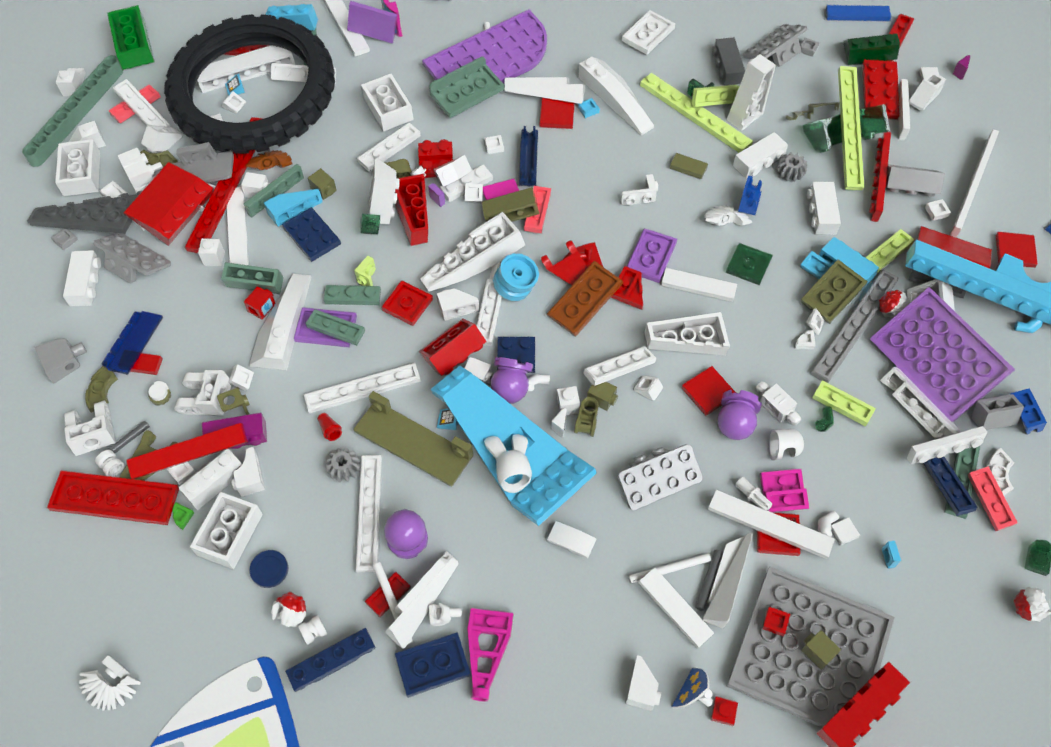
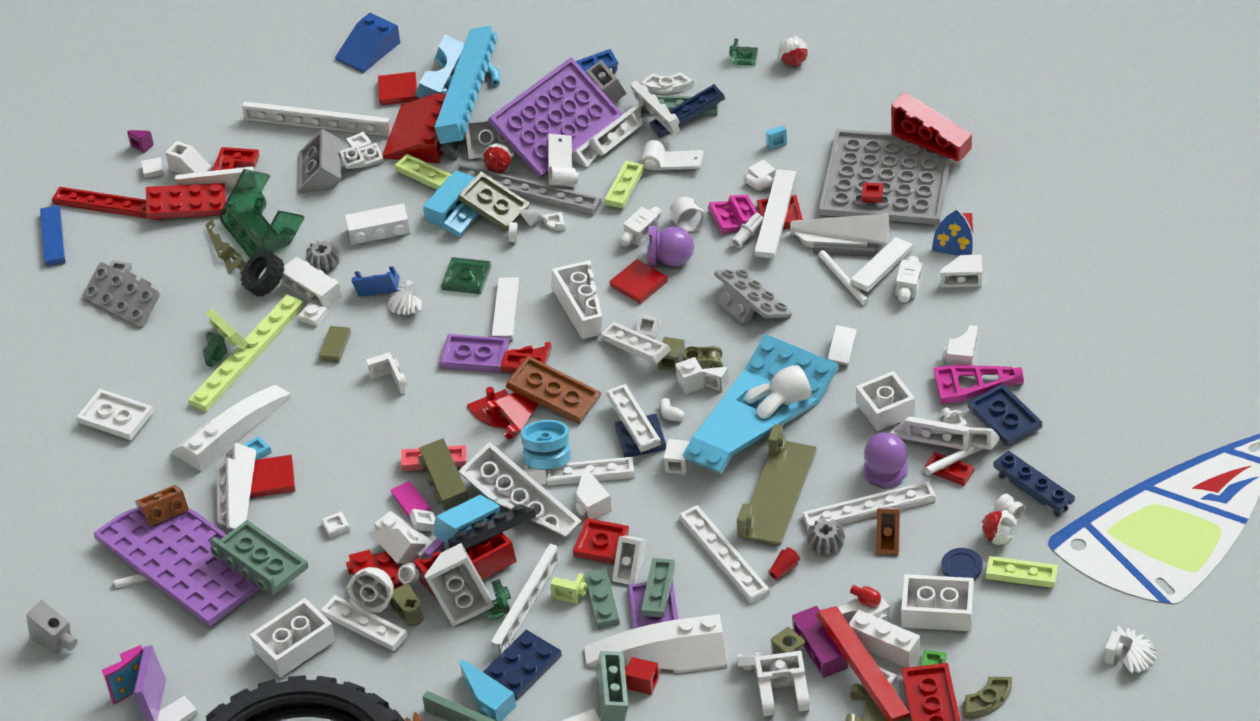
camera: 100 degrees left, 15 degrees down
(122, 549) = (989, 698): none -> olive tile
(237, 617) = (1021, 572): none -> yellowish green plate
(249, 470) = (866, 595): none -> red cylinder
(323, 182) = (443, 671): olive brick -> none
(331, 516) = (888, 530): none -> dark orange slope
(367, 243) = (525, 600): none -> white tile
(380, 317) = (629, 559): none -> white slope
(405, 145) = (370, 590): none -> white cylinder
(431, 222) = (499, 524): none -> black plate
(447, 420) = (739, 469): slope -> none
(453, 347) = (650, 482): red slope -> none
(454, 212) = (464, 517): none -> medium azure brick
(479, 554) = (885, 401): none -> white brick
(511, 379) = (680, 416): medium lavender tile -> none
(527, 650) = (962, 349): none -> white arch
(528, 157) = (352, 482): dark blue piece -> none
(529, 346) = (633, 418): none -> white tile
(539, 42) = (162, 505): none -> dark orange bracket
(645, 626) = (908, 279): none -> white piece
(726, 156) = (313, 314): none -> white plate
(728, 61) = (159, 331): dark grey brick -> none
(752, 92) = (233, 284): white wedge -> none
(774, 122) = (269, 279): none -> black tyre
(793, 302) = (512, 237): none -> white tile
(820, 649) = (888, 161): olive brick -> none
(827, 420) = (647, 194): clear green arm -> none
(850, 128) = (260, 208): yellowish green plate -> none
(866, 352) = (560, 161): none -> white door
(872, 48) = (119, 212): dark green slope -> none
(876, 450) = (656, 158): none -> white door
(879, 180) = (322, 187): red plate -> none
(918, 208) = (361, 157): none -> white slope
(929, 121) = (236, 157): none -> red plate
(992, 498) = (697, 82): coral plate -> none

